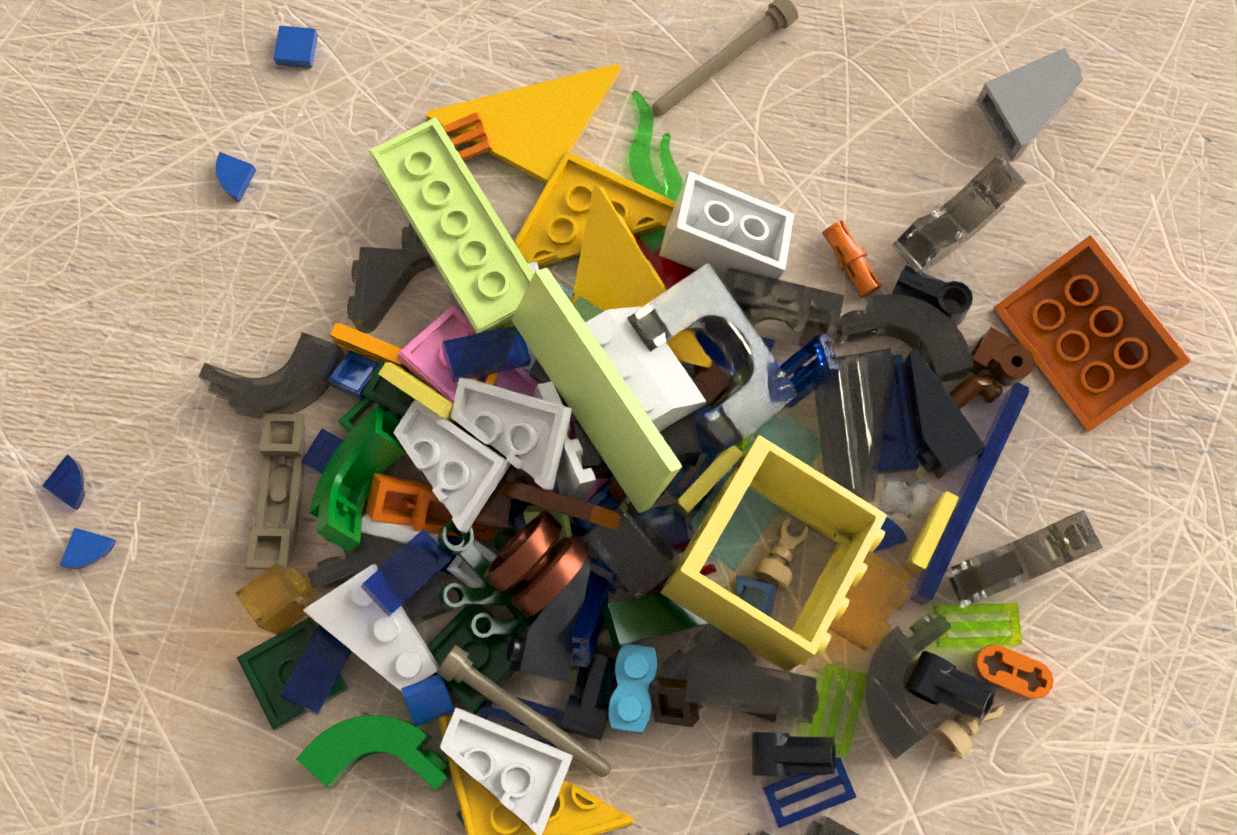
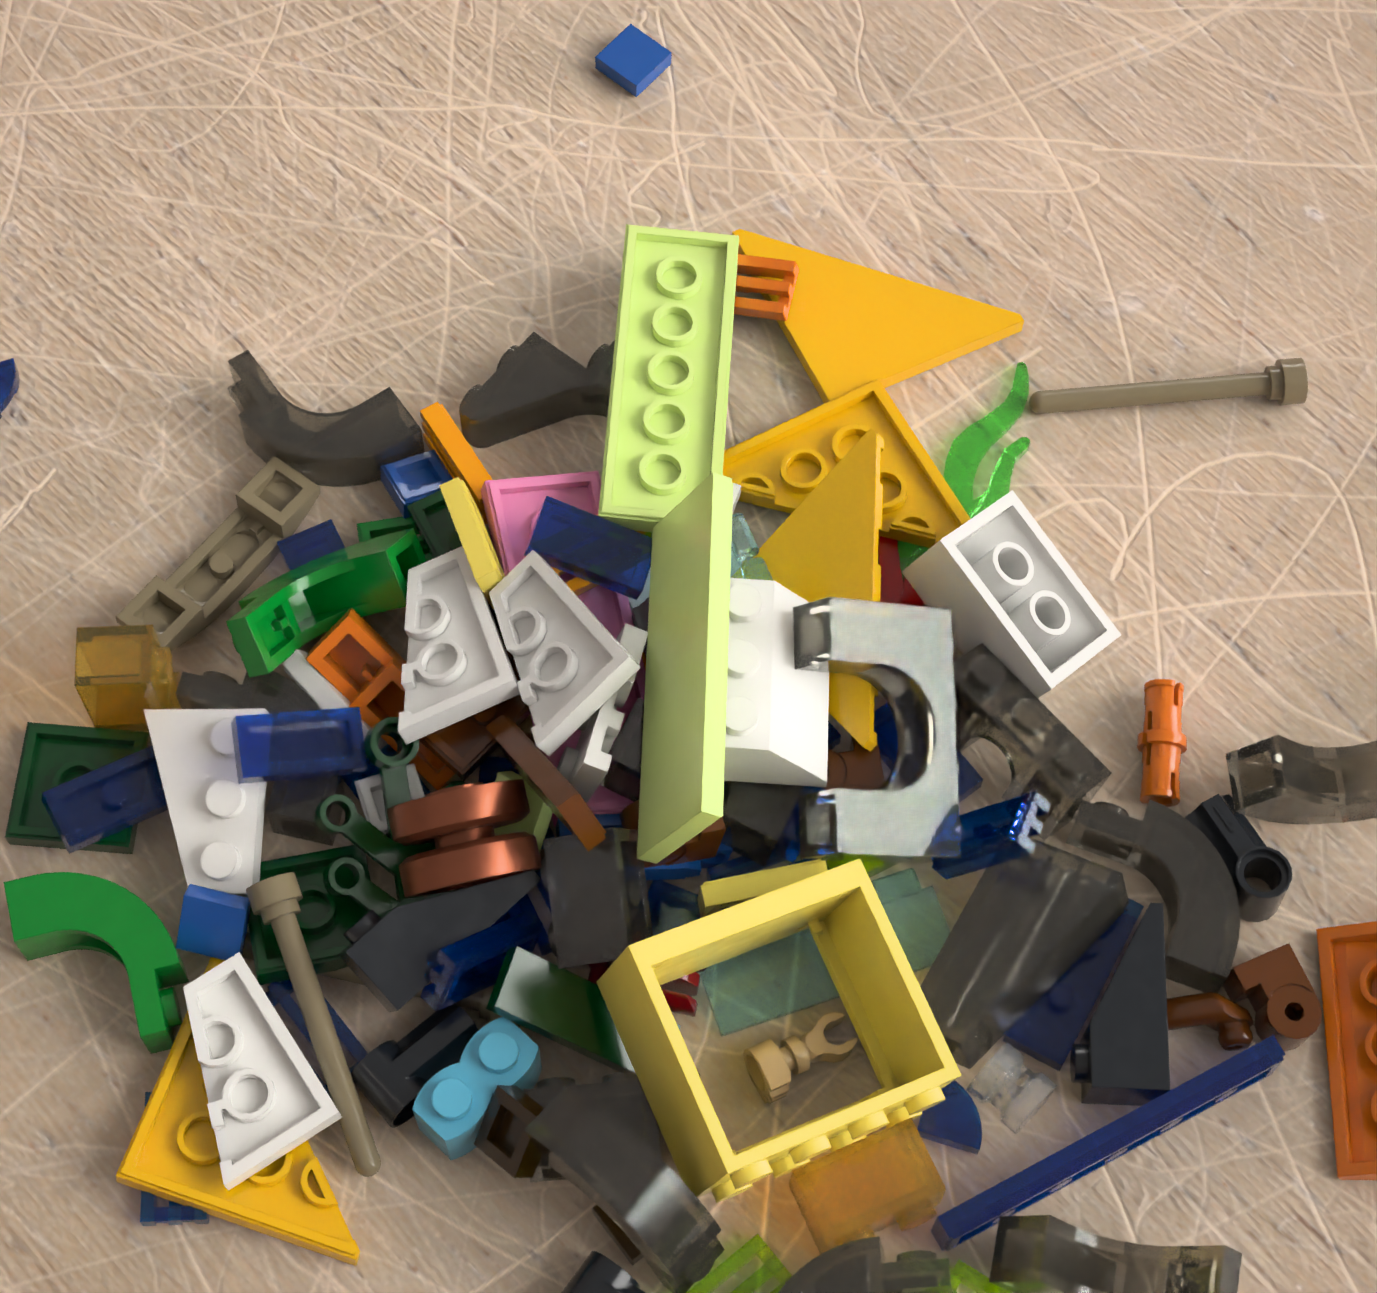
camera: 30 degrees right, 10 degrees down
(234, 175) = (448, 163): blue tile -> none
(756, 593) = (727, 1082): tile -> none
(931, 532) = (1017, 1155): light yellow tile -> none

